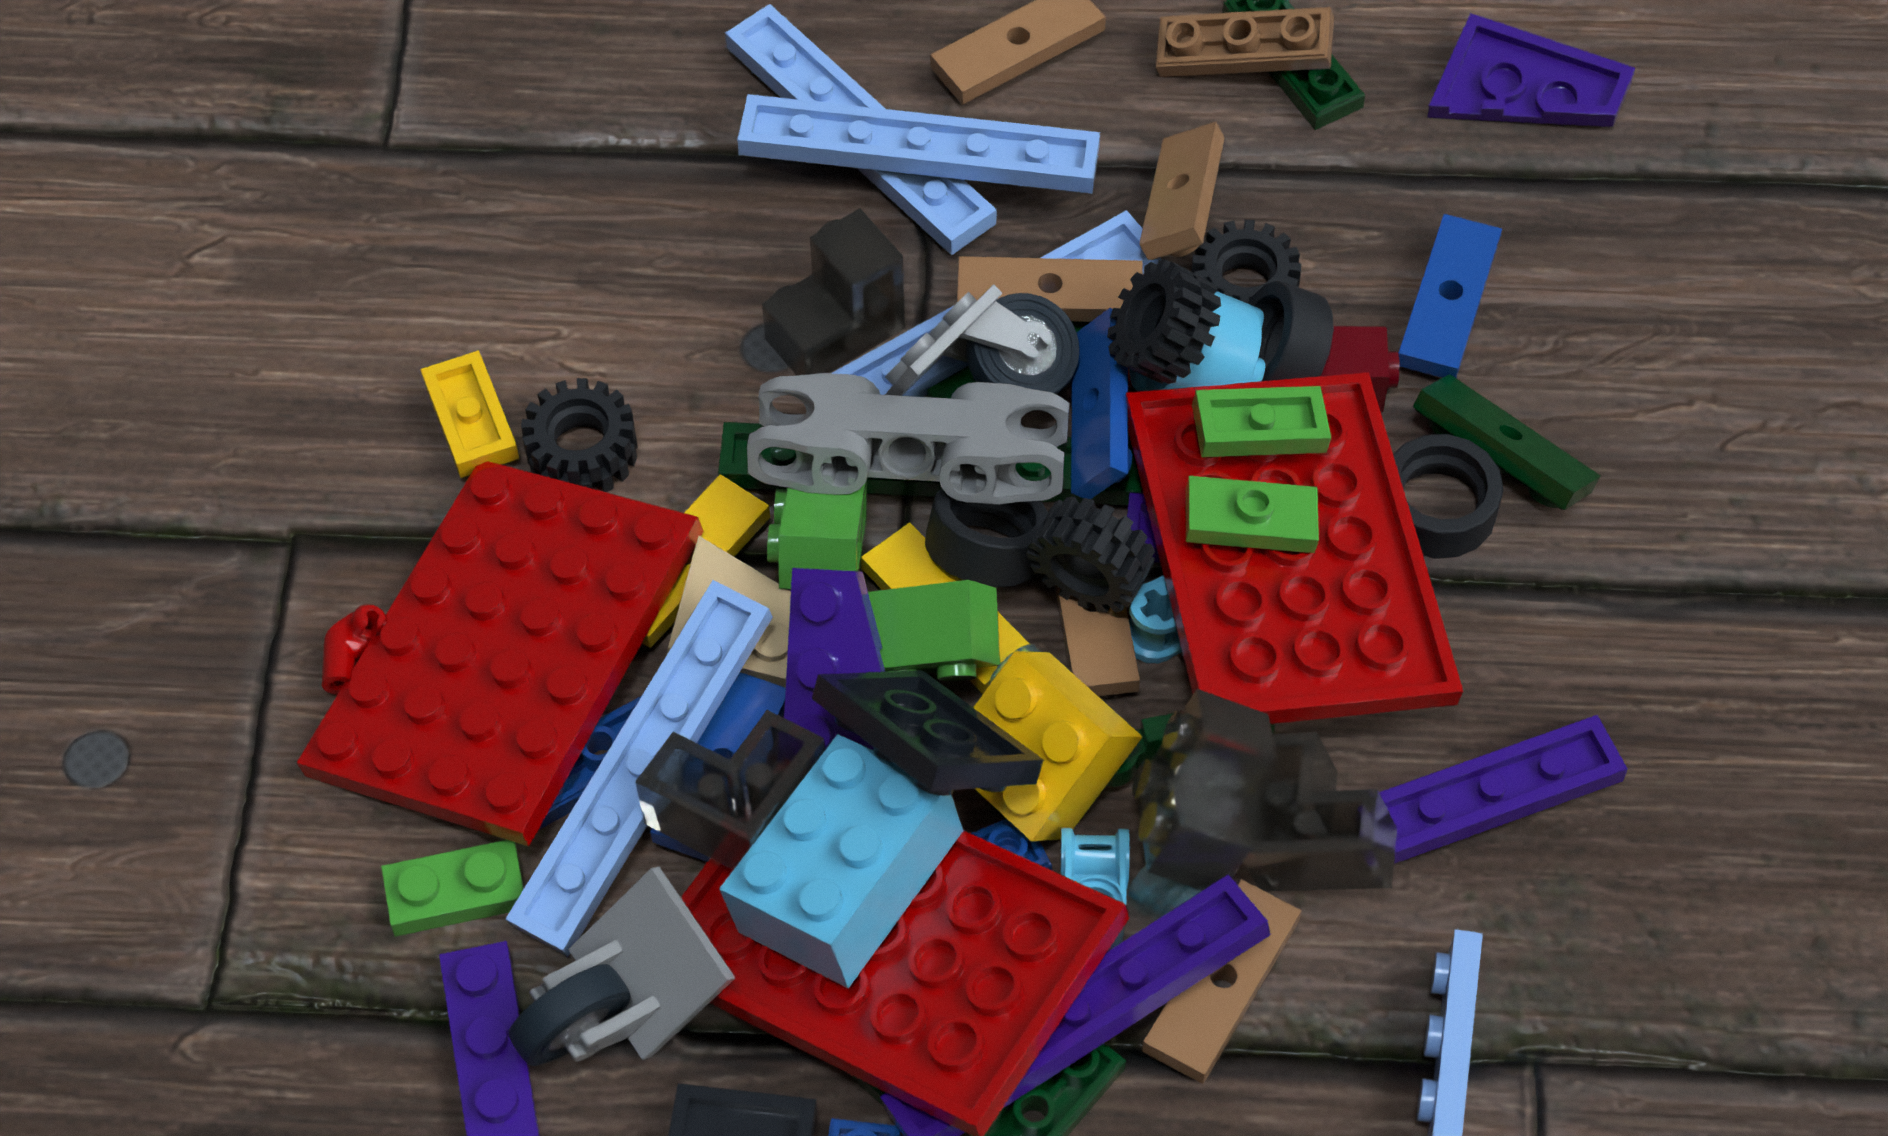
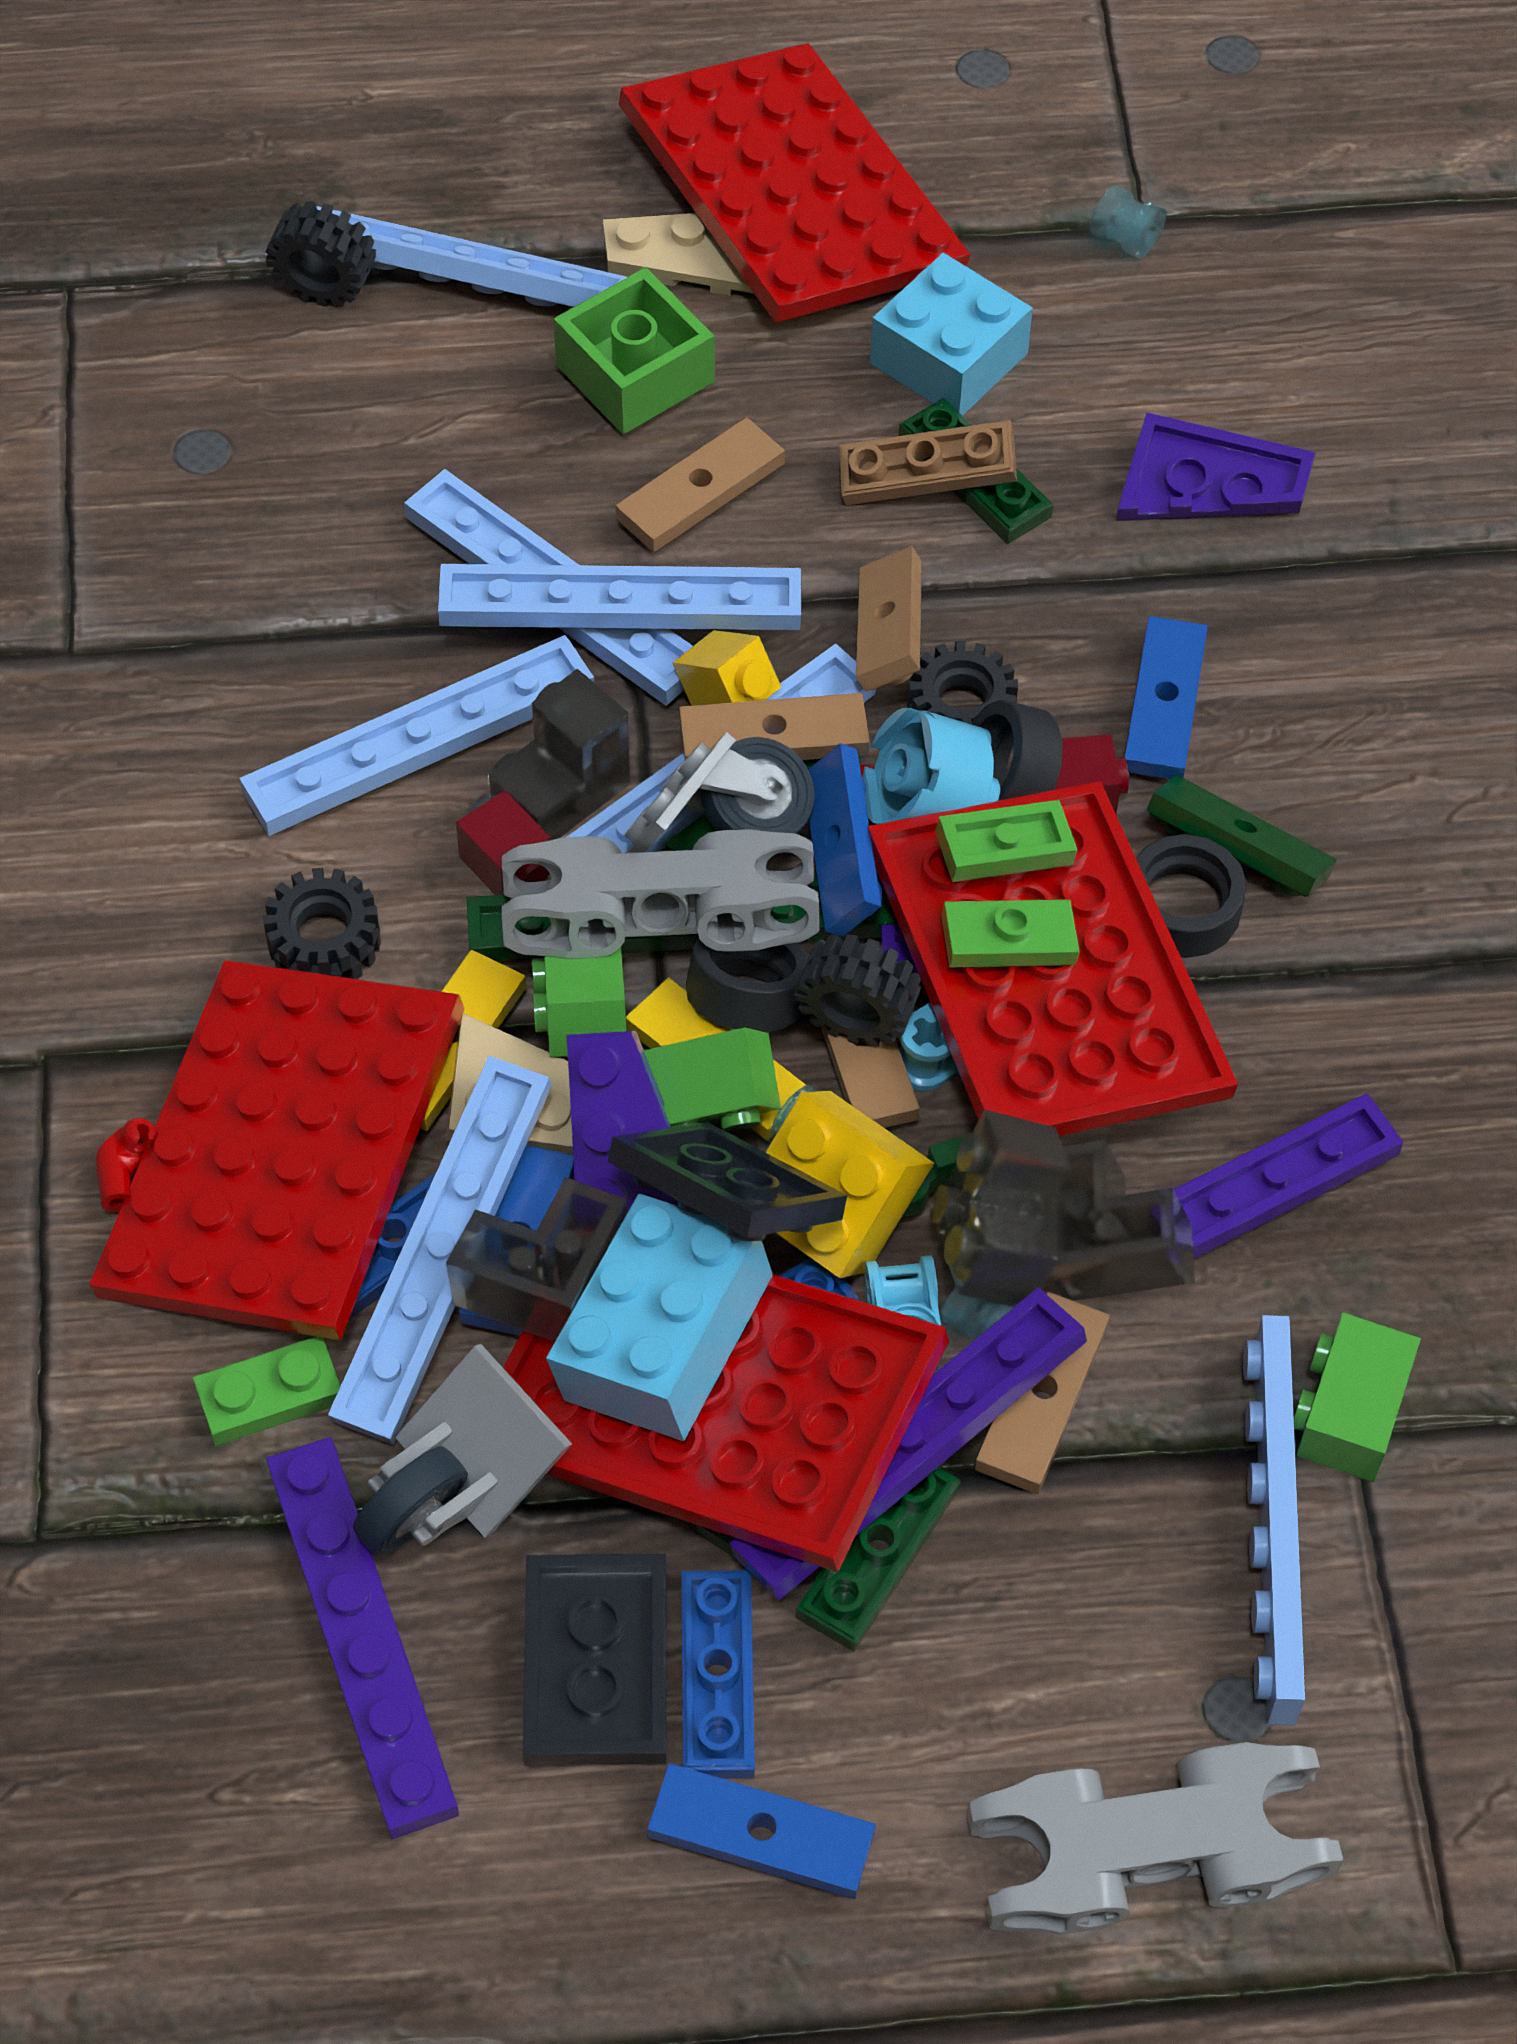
camera: 10 degrees left, 0 degrees up
(469, 412) = (205, 914): yellow plate -> none
(690, 261) = (406, 738): none -> light blue plate
(758, 359) = (491, 833): none -> dark red brick
(1013, 225) = (726, 670): none -> yellow brick
(1164, 321) = (898, 752): black tyre -> none
(1542, 1023) = (1357, 1396): none -> bright green brick

